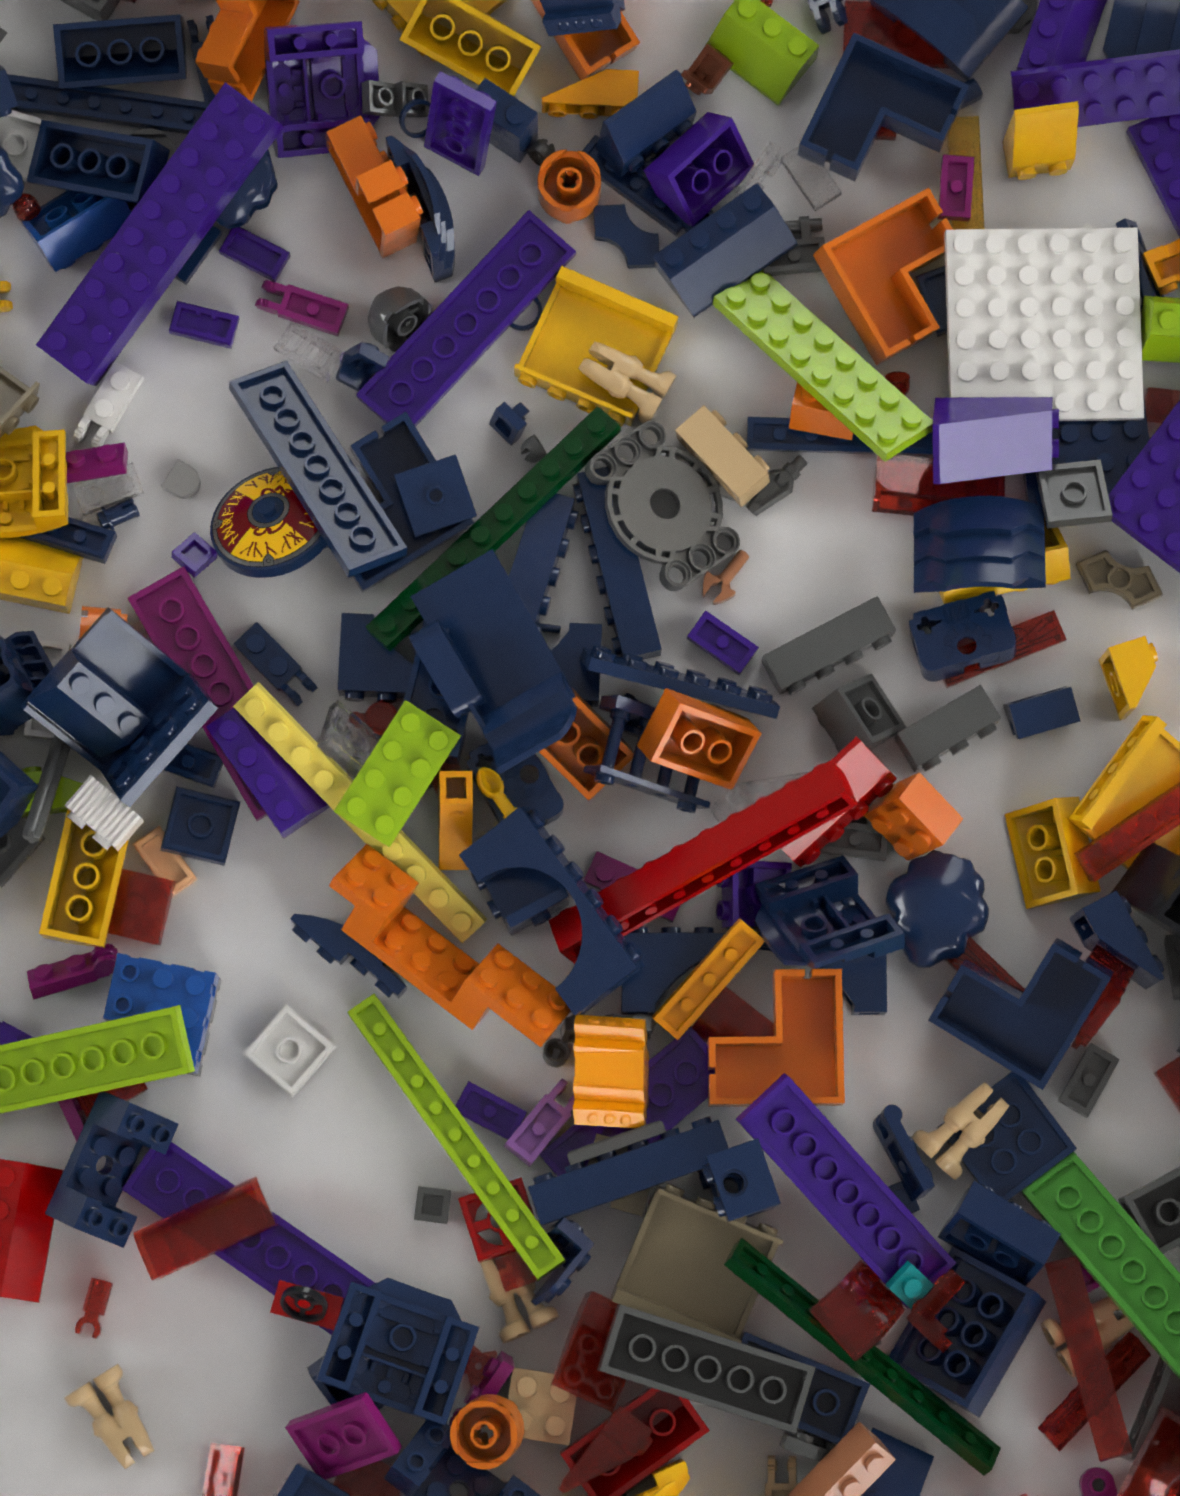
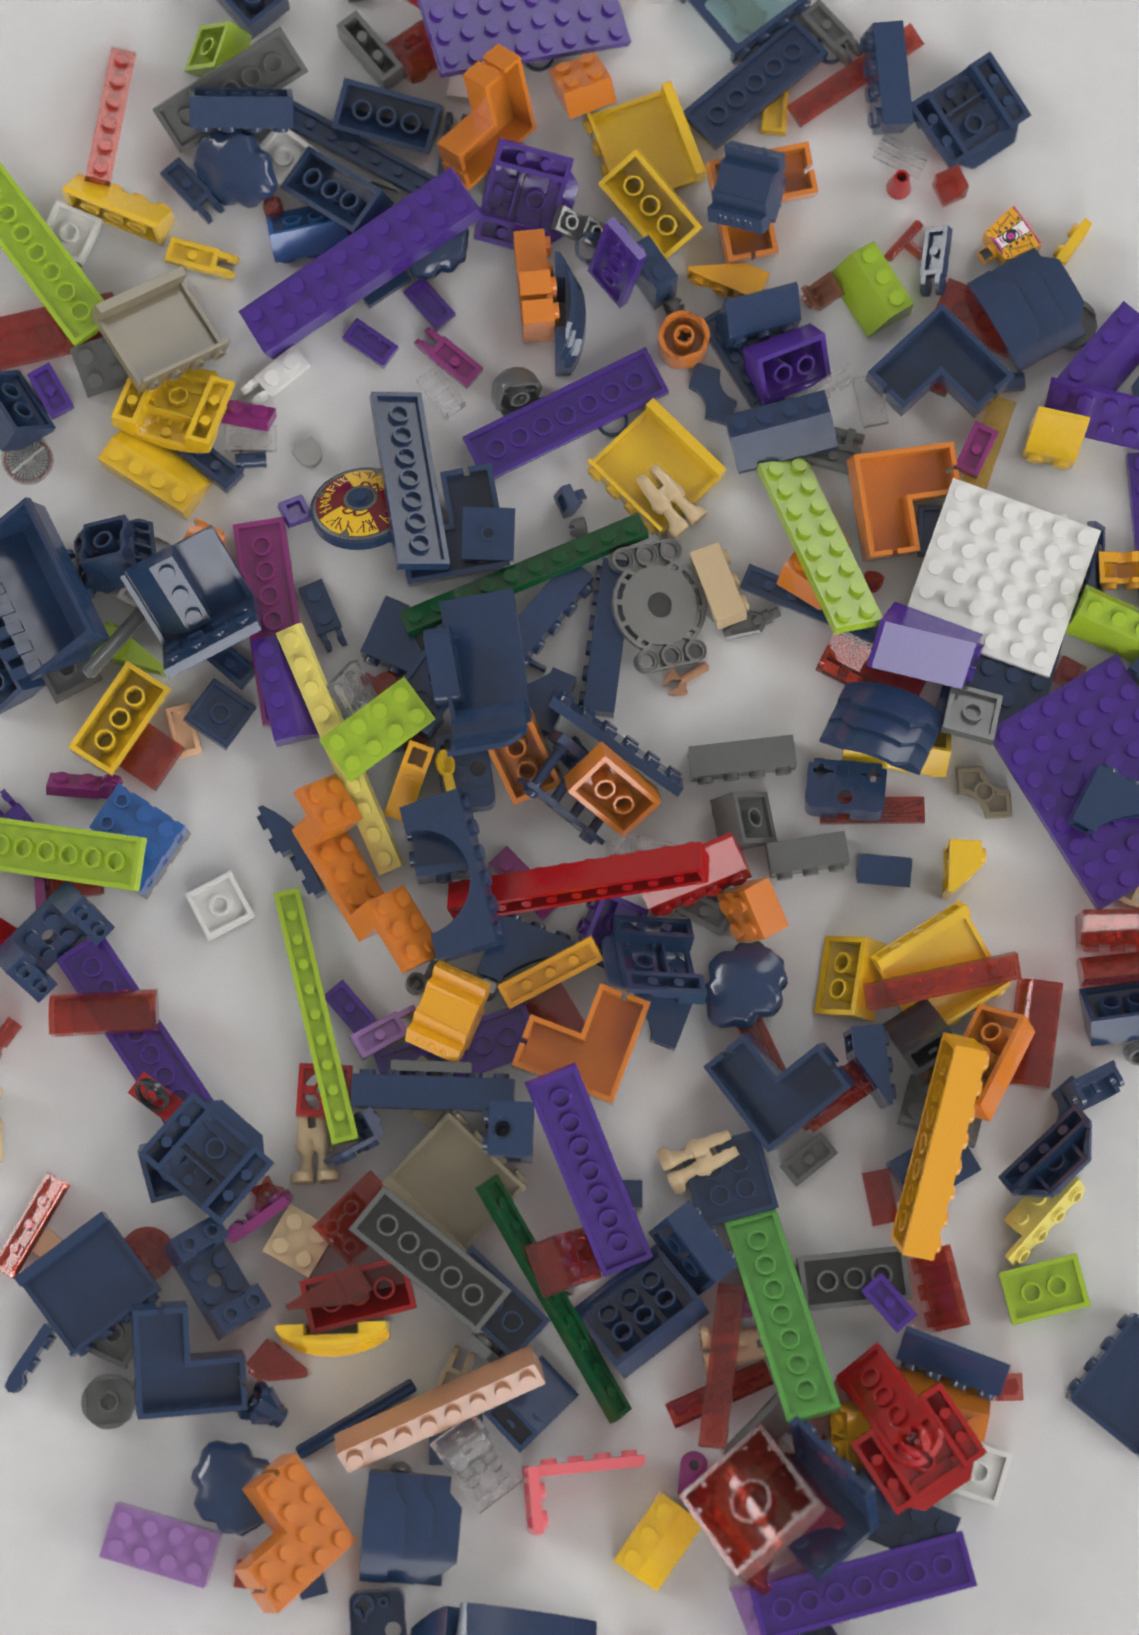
camera: 25 degrees right, 0 degrees up
(103, 813) = (149, 677): white brick -> none
(343, 1436) = (144, 1205): magenta plate -> none
(359, 364) = (473, 415): dark blue bracket -> none
(432, 1205) = (280, 1061): dark grey plate -> none
(473, 1444) = (237, 1249): orange brick -> none
(514, 1271) = (318, 1133): clear red tile -> none
(722, 642) = (663, 726): dark purple plate -> none
(903, 1152) = (645, 1159): dark blue plate -> none
(909, 1284) = (610, 1259): teal plate -> none
(925, 1309) = (615, 1282): clear red bracket -> none

